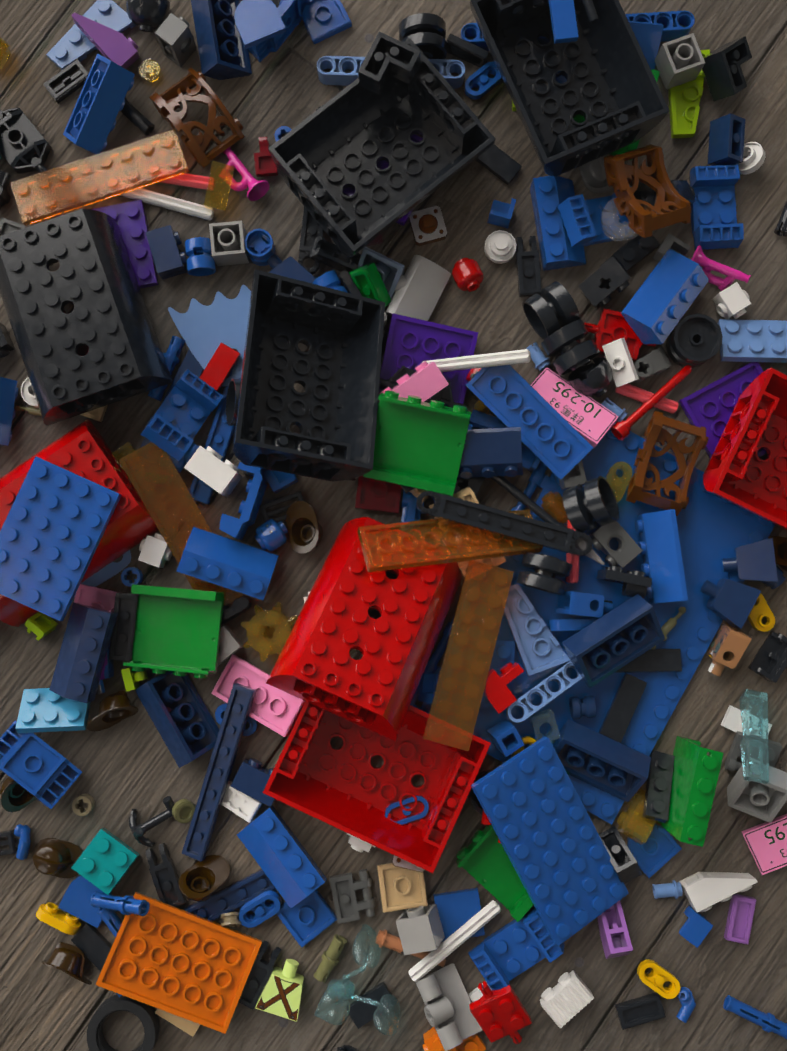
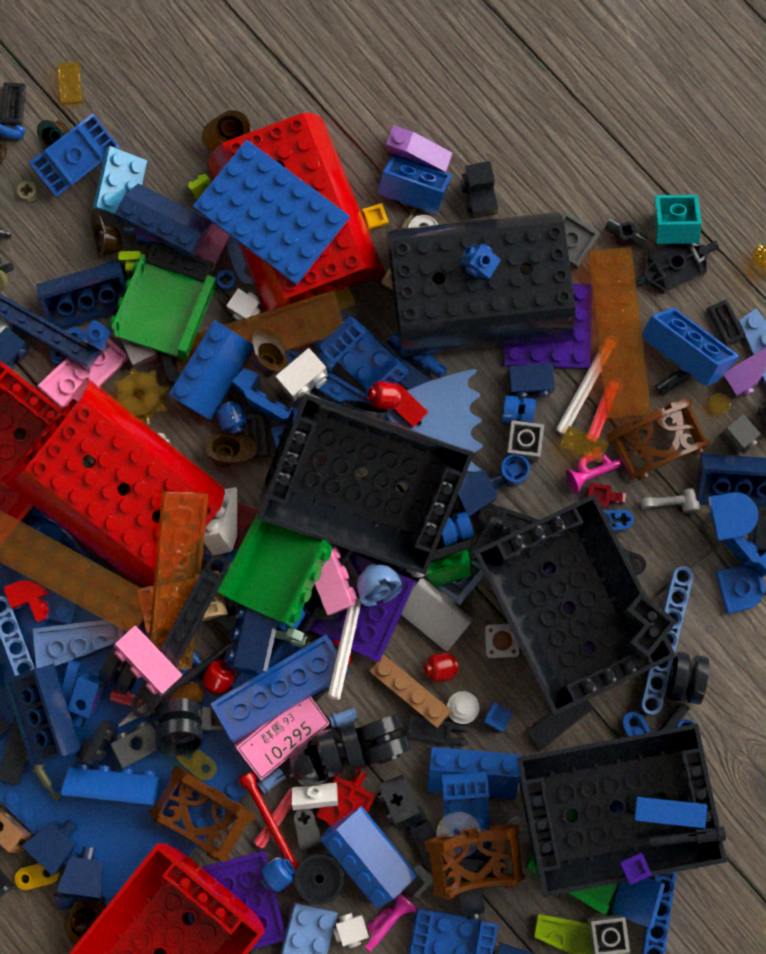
camera: 105 degrees right, 5 degrees down
(32, 443) = (375, 216): none -> yellow tile
(53, 306) = (480, 261): none -> blue brick
(199, 508) = (268, 352): none -> dark brown piece
(215, 385) = (384, 395): none -> red head
(218, 688) = (97, 335): none -> blue bracket
(251, 81) = (687, 500): none -> light grey brick
(385, 511) = (222, 529): none -> white slope
(404, 345) = (378, 583): none -> medium blue cylinder
(477, 414) = (292, 635): none -> sand green bar
(498, 297) = (410, 691): none -> medium nougat plate
(532, 482) = (218, 678): none -> red head
(540, 546) = (146, 661): none -> bright pink brick
(623, 27) = (635, 868): none -> dark purple plate
(702, 379) = (277, 874): none -> blue head

